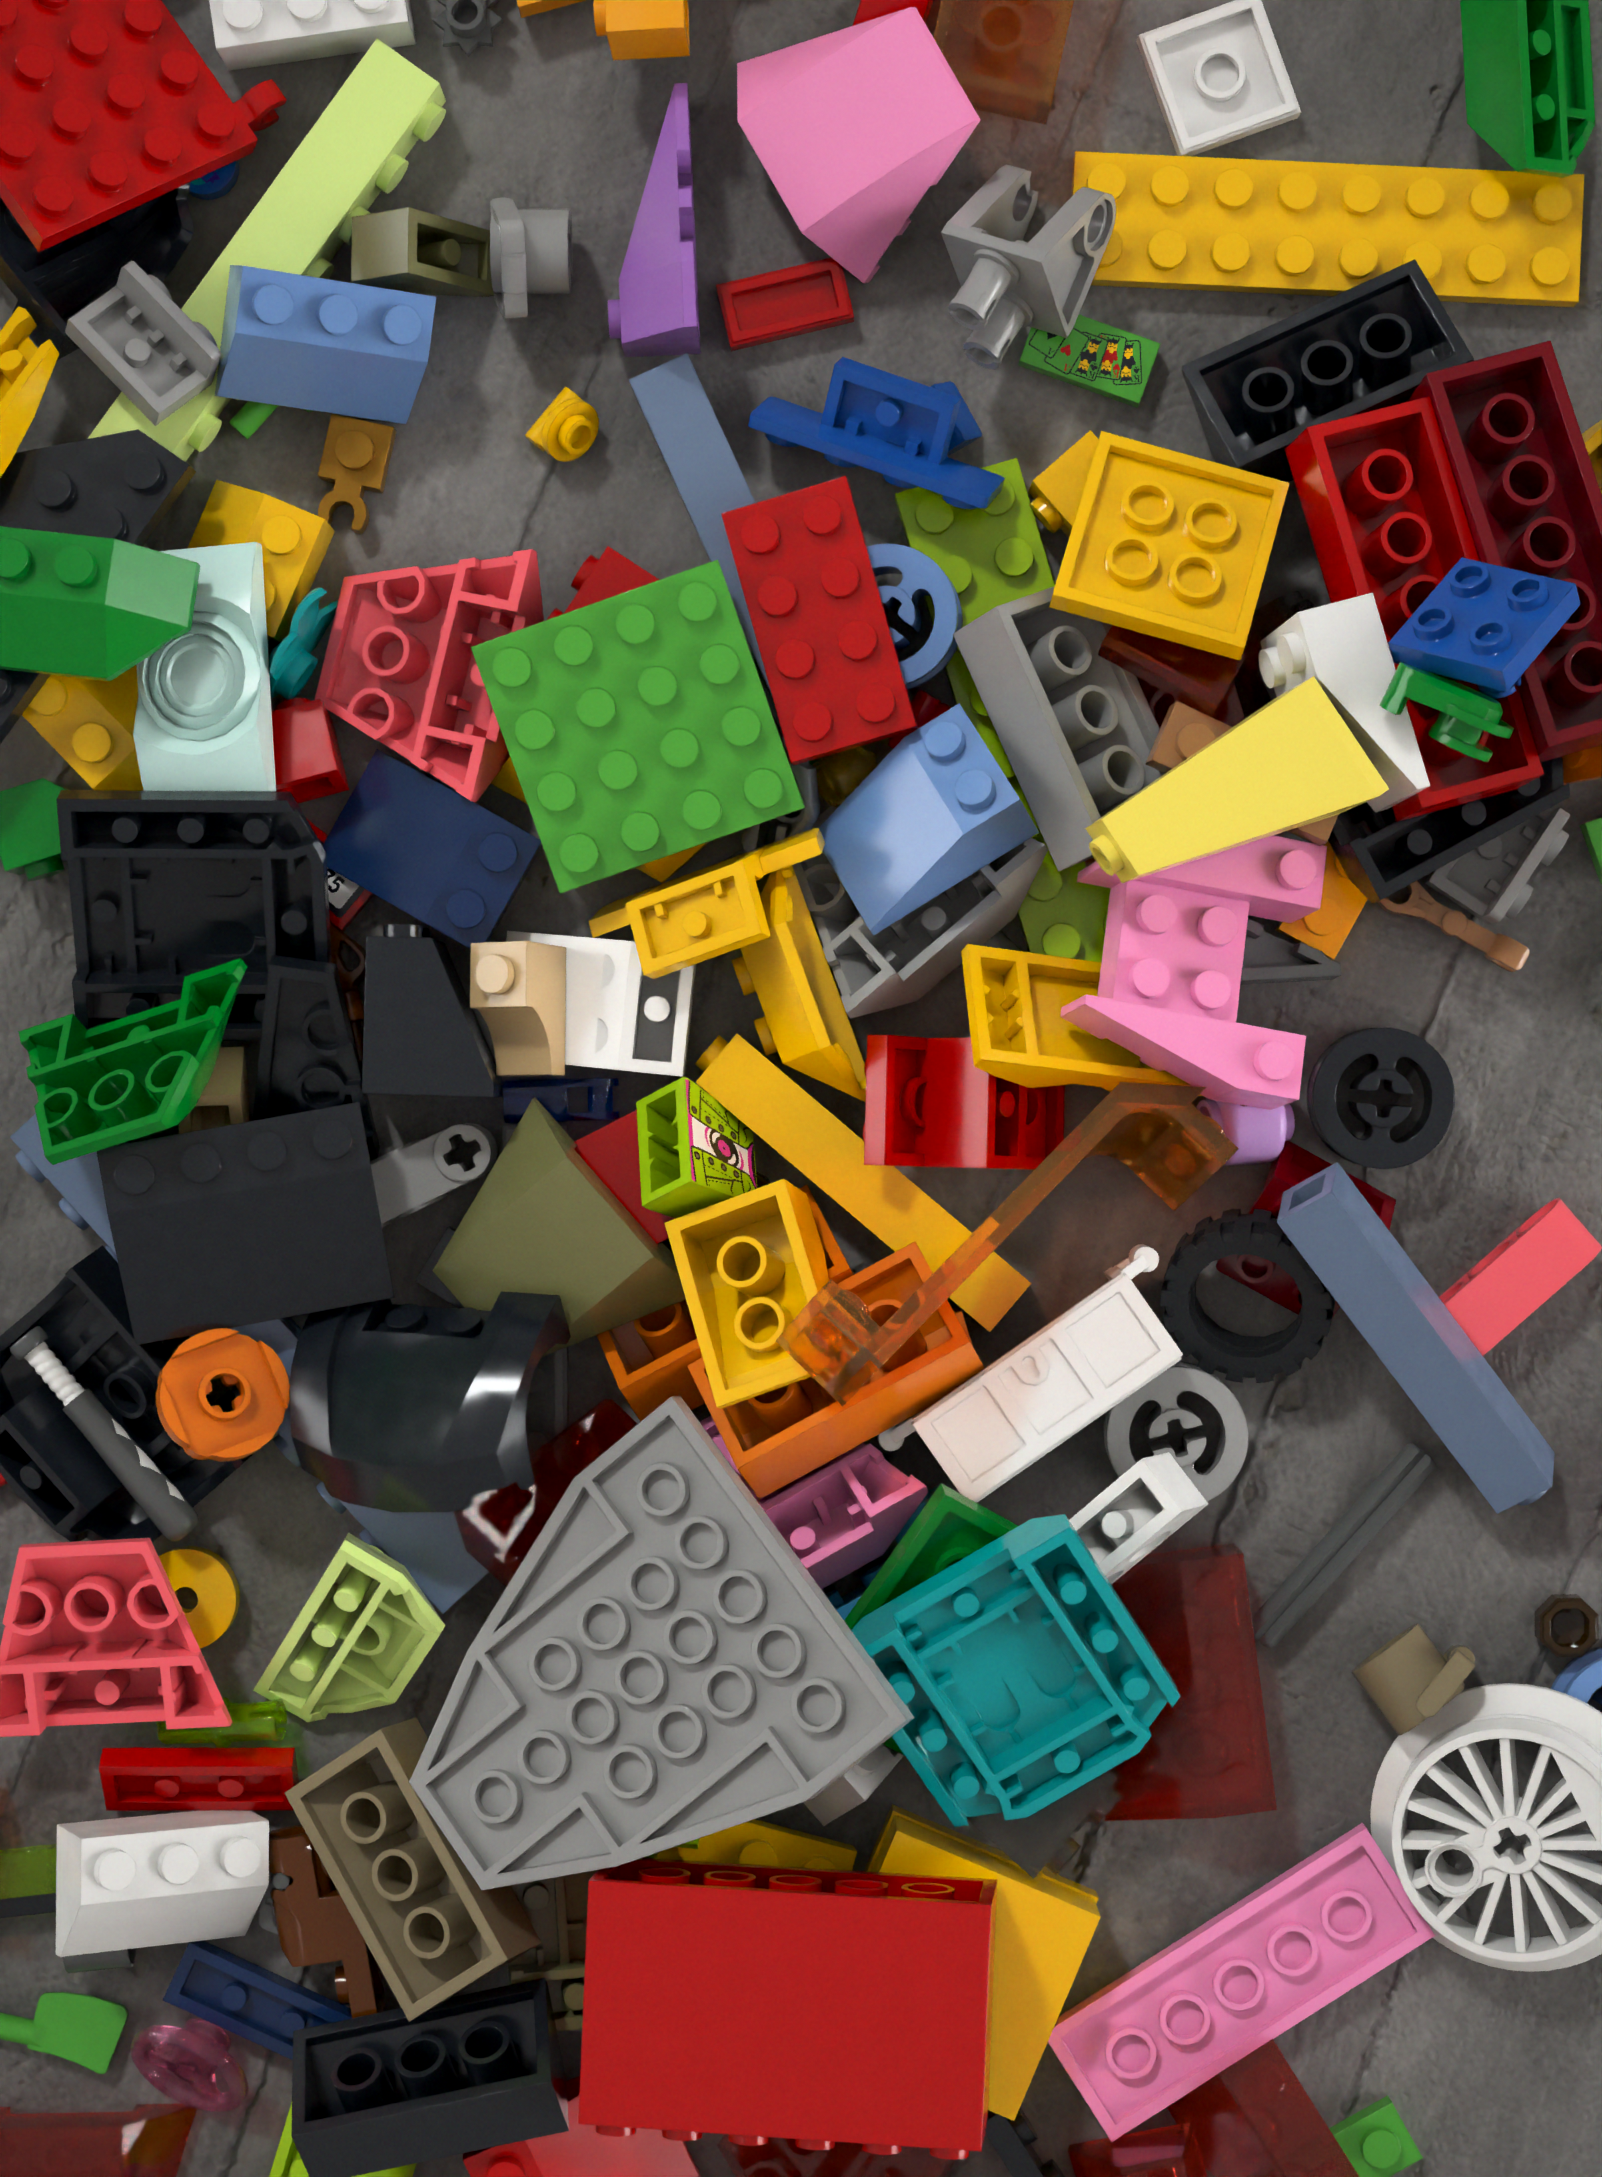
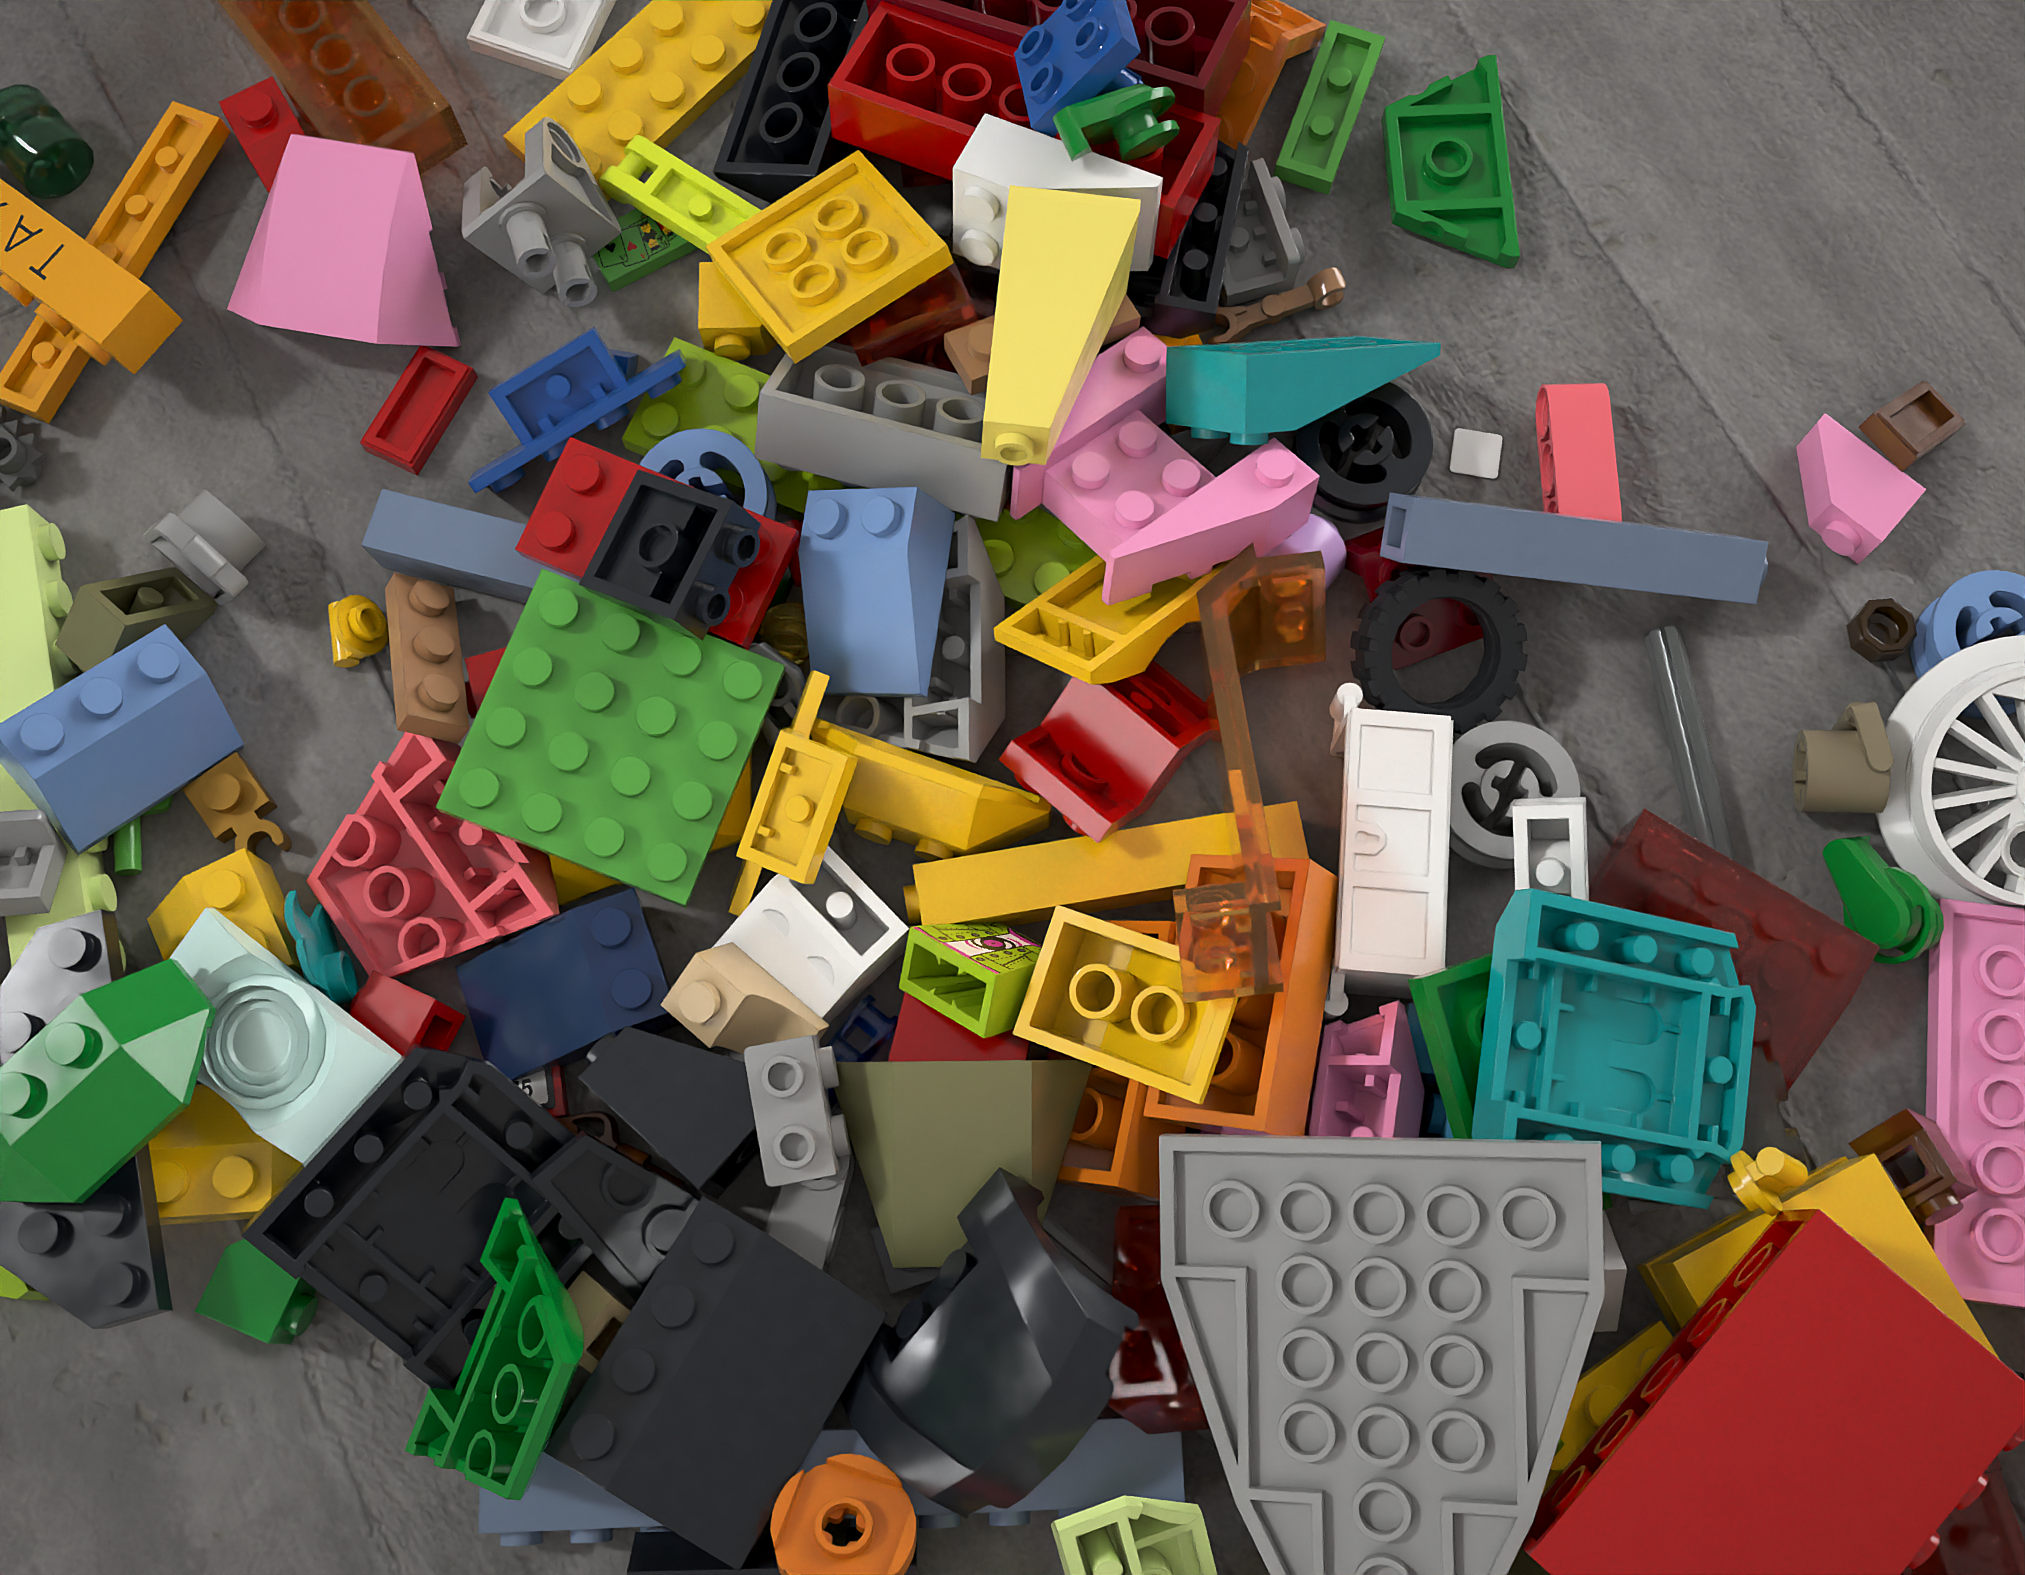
camera: 50 degrees left, 15 degrees down
(474, 1111) = (794, 1110): none -> light grey bracket
(584, 515) = (426, 659): none -> medium nougat plate
(659, 271) = (310, 458): medium lavender wedge -> none
(808, 656) = (673, 554): none -> black plate
(1007, 1847) = (1760, 1180): none -> yellow plate
(1138, 360) = (675, 194): none -> neon yellow plate
(1144, 1964) = (1935, 1195): none -> reddish brown window
(1325, 1786) = (1883, 900): none -> green piece
(1376, 1002) = (1279, 382): none -> teal slope
(1463, 1187) = (1476, 453): none -> white sticker

